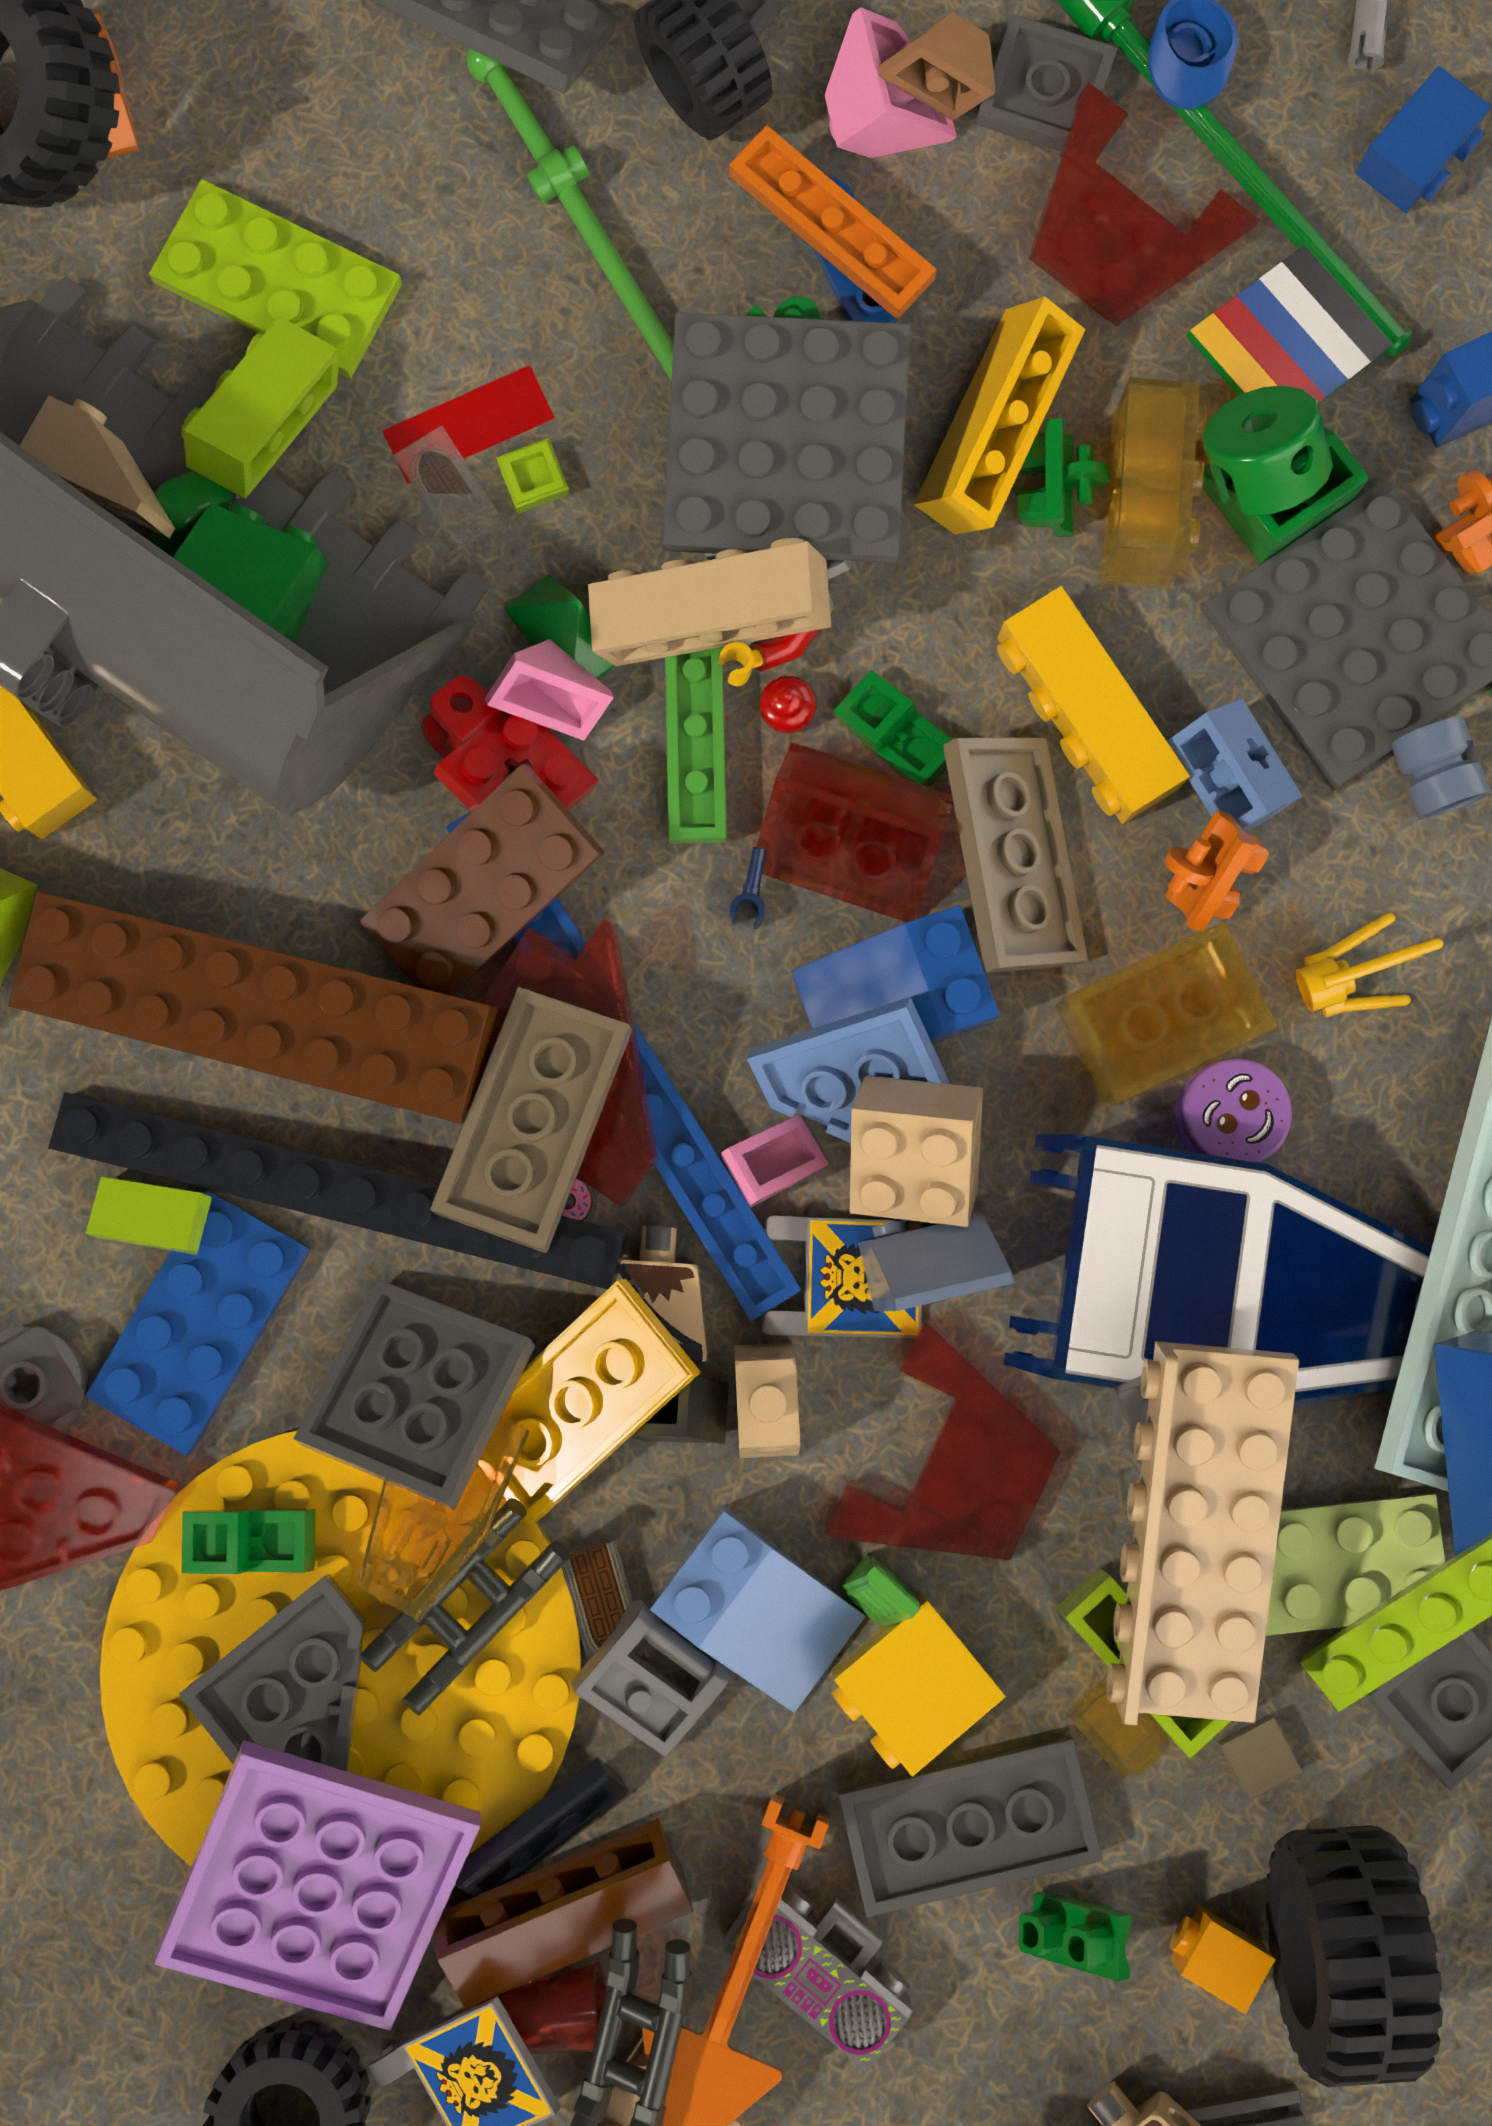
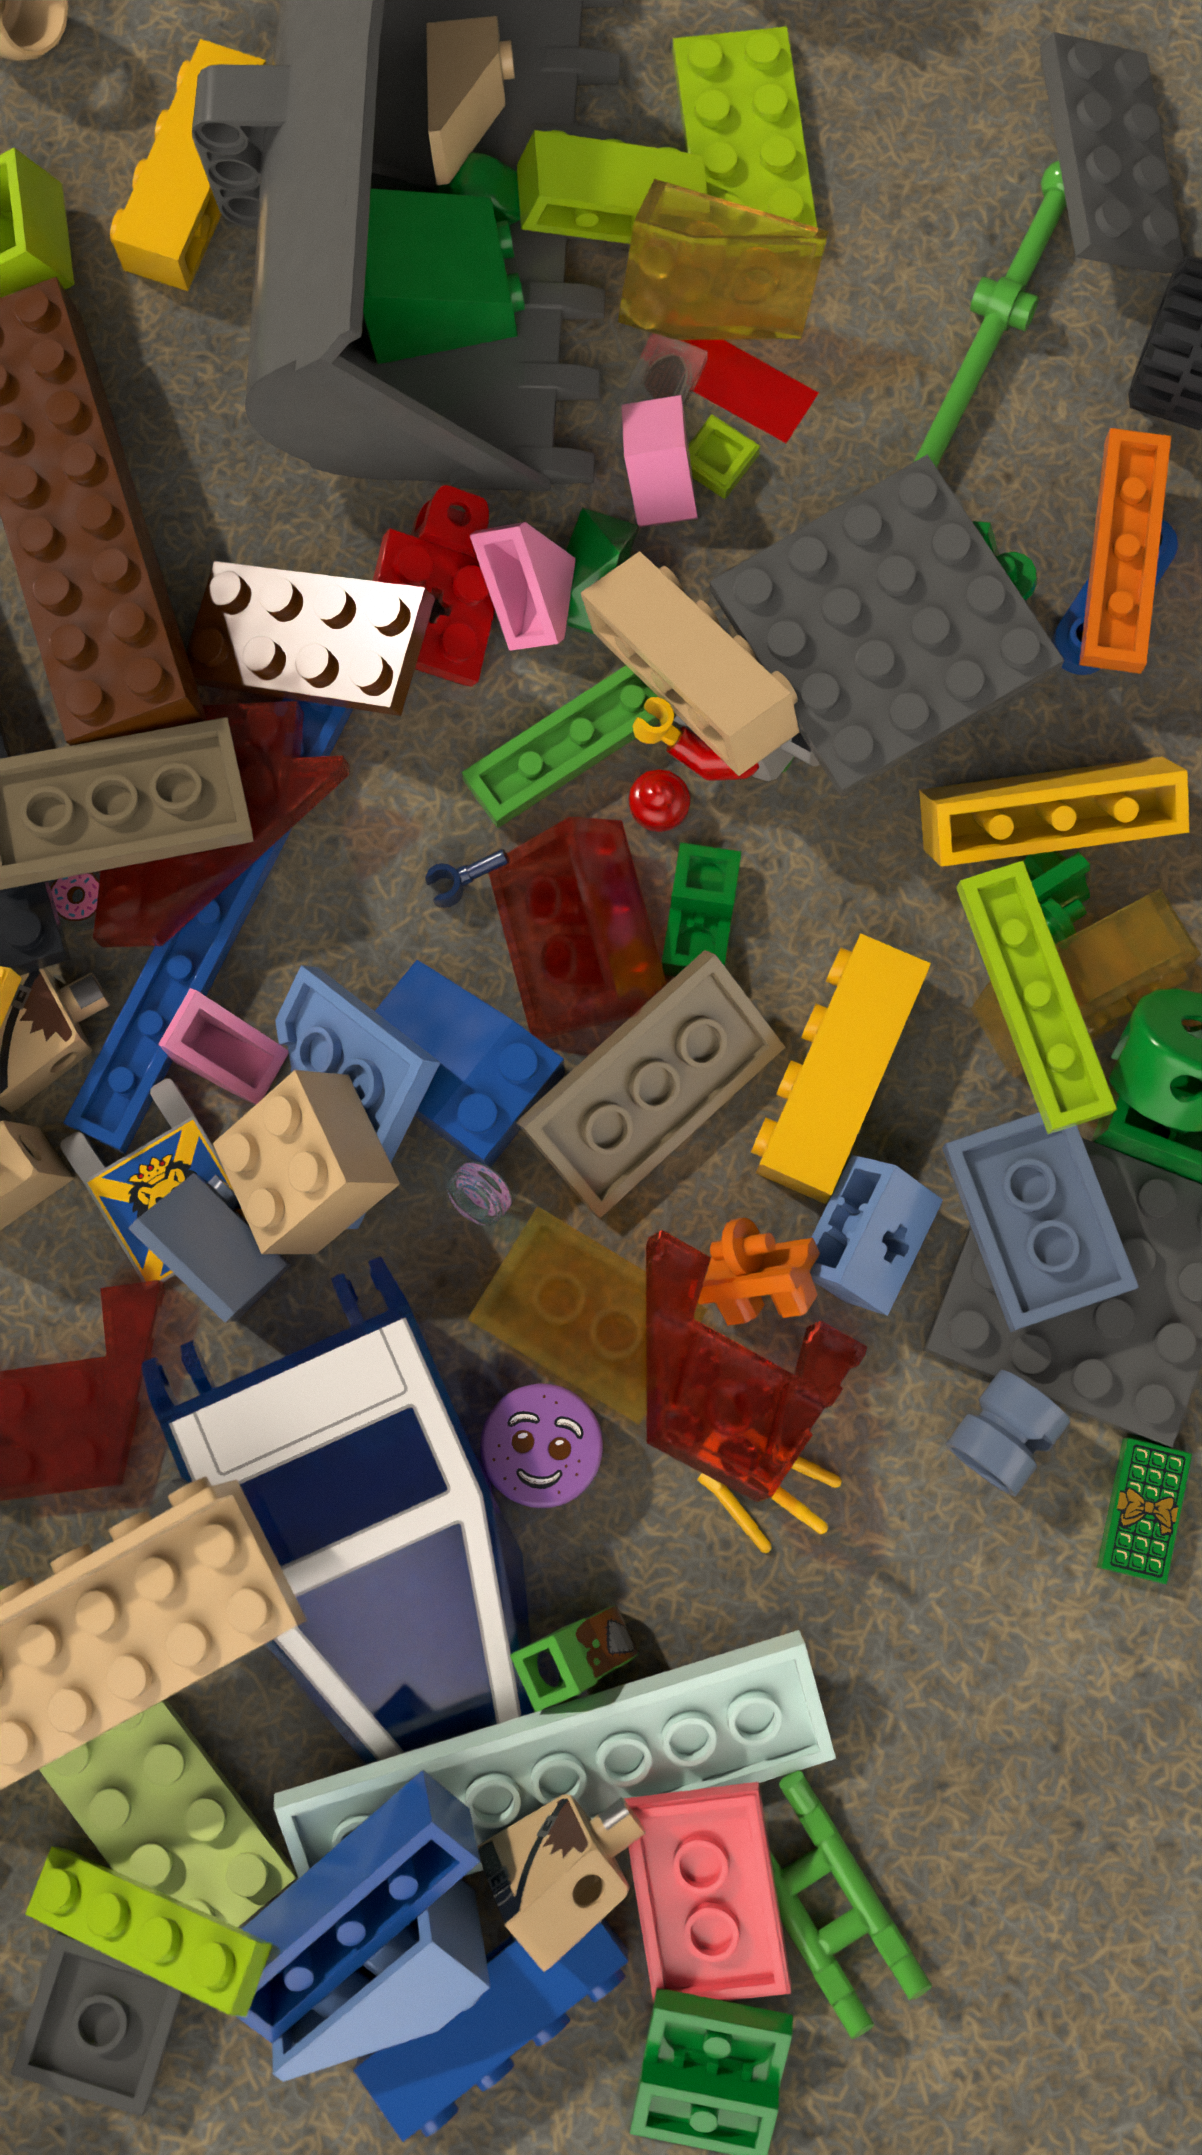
camera: 60 degrees right, 5 degrees down
(388, 370) = (718, 269): none -> clear yellow slope
(511, 520) = (658, 461): none -> bright pink slope
(1012, 1037) = (479, 1193): none -> clear light blue tile
(1160, 522) = (1035, 997): none -> lime plate
(1299, 956) = (719, 1400): none -> clear red wing
(1304, 636) = (1039, 1220): none -> sand blue plate
(1410, 1176) = (582, 1654): none -> bright green leg

